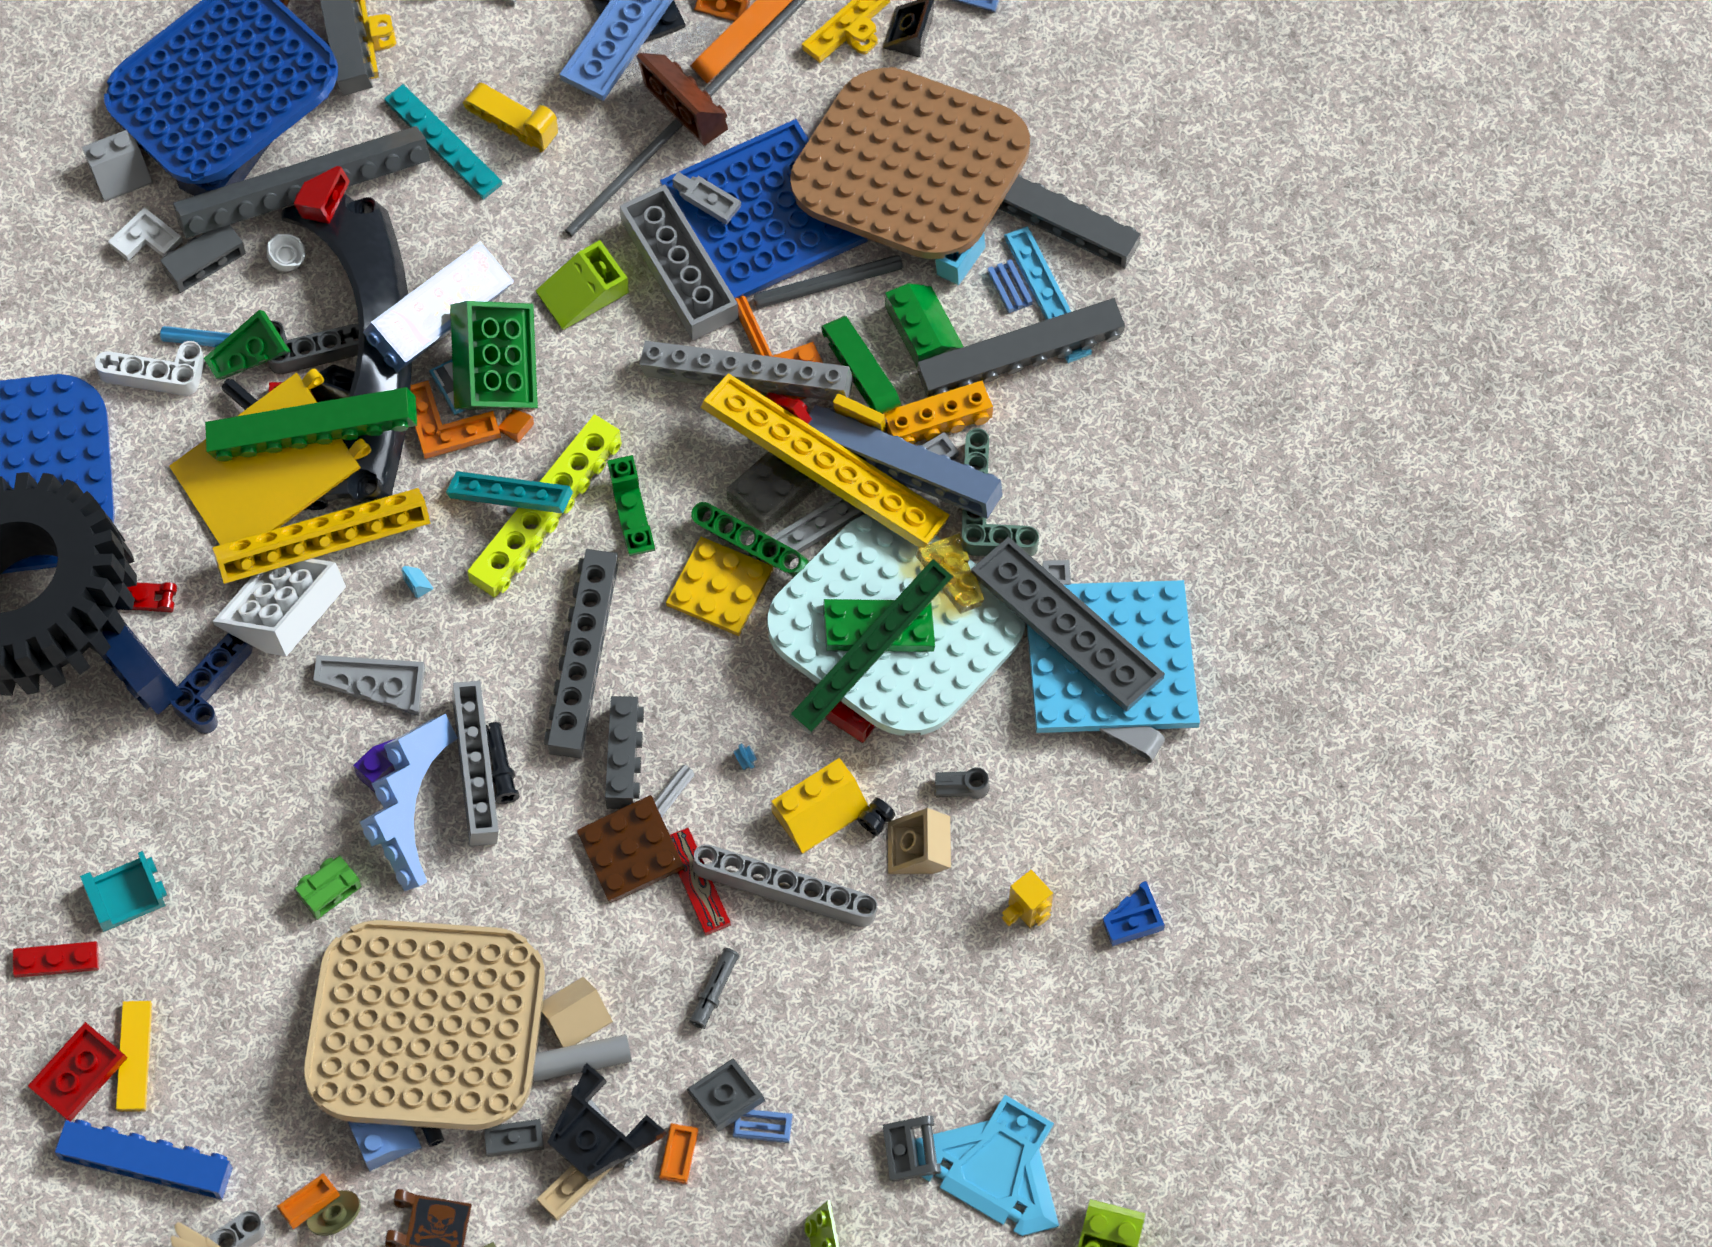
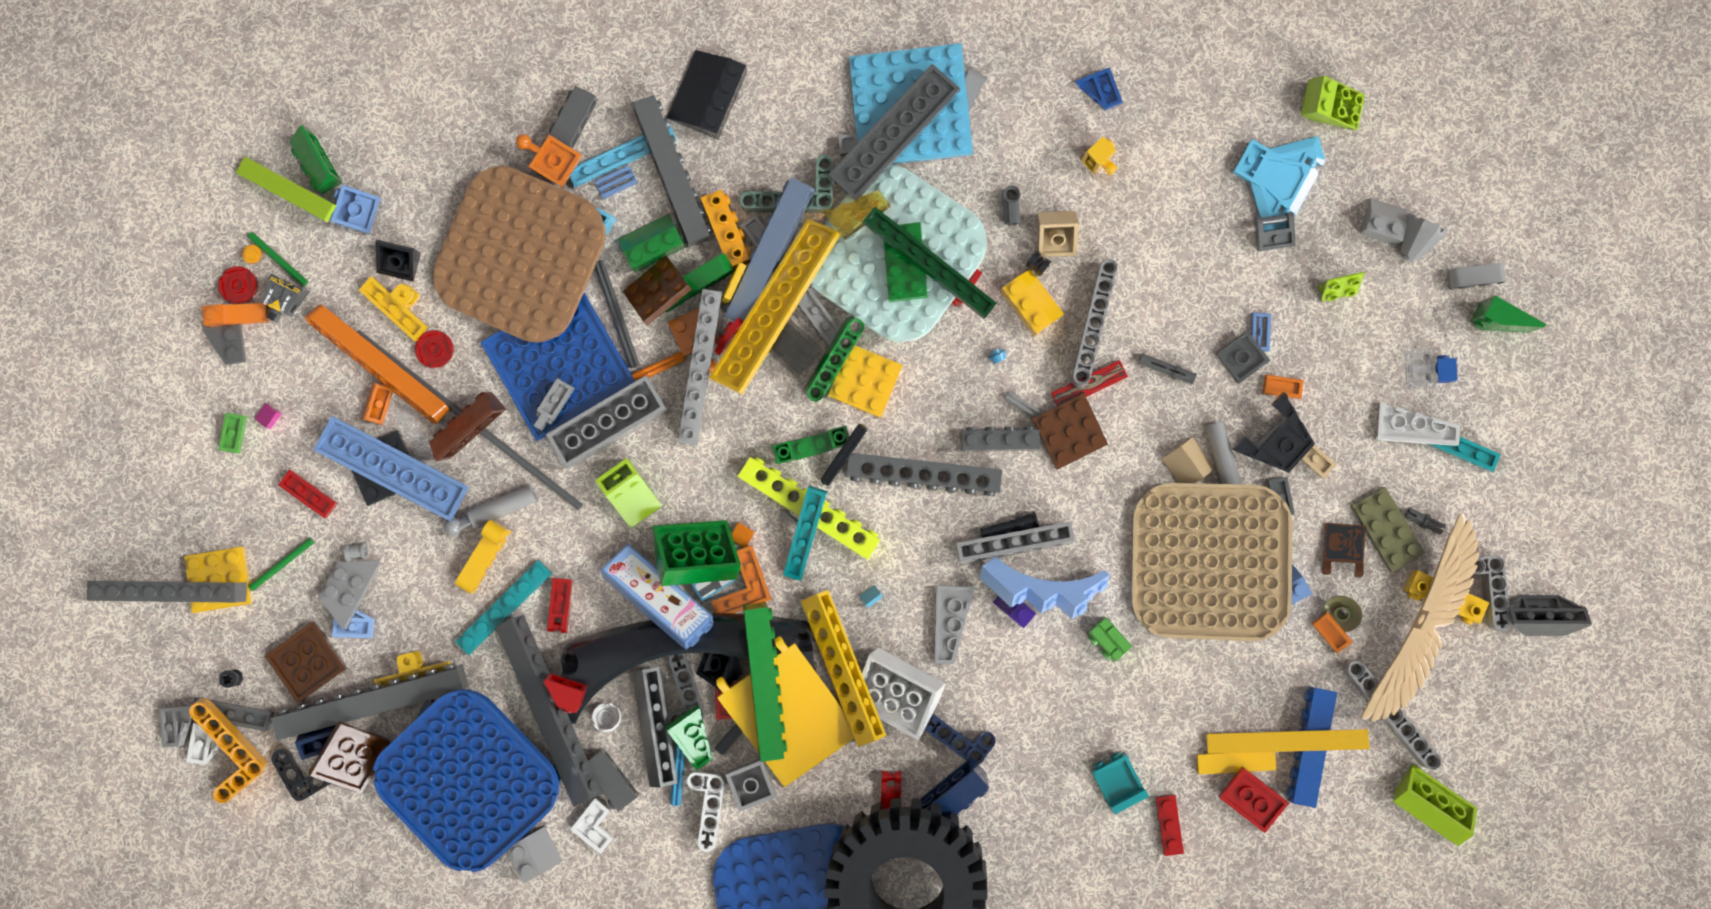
camera: 95 degrees left, 20 degrees up
(155, 1118) = (1288, 741): none -> yellow tile
(176, 419) = (751, 784): none -> light grey brick
(276, 304) = (652, 723): none -> dark grey brick
(440, 204) = (560, 604): none -> red plate
(572, 130) = (492, 510): none -> light grey piece
(614, 544) = (843, 454): none -> black axle
(789, 76) = (438, 353): none -> red tile
(854, 321) = (656, 290): none -> reddish brown plate
(1037, 202) = (552, 160): none -> orange plate
(1130, 401) = (708, 93): none -> black slope

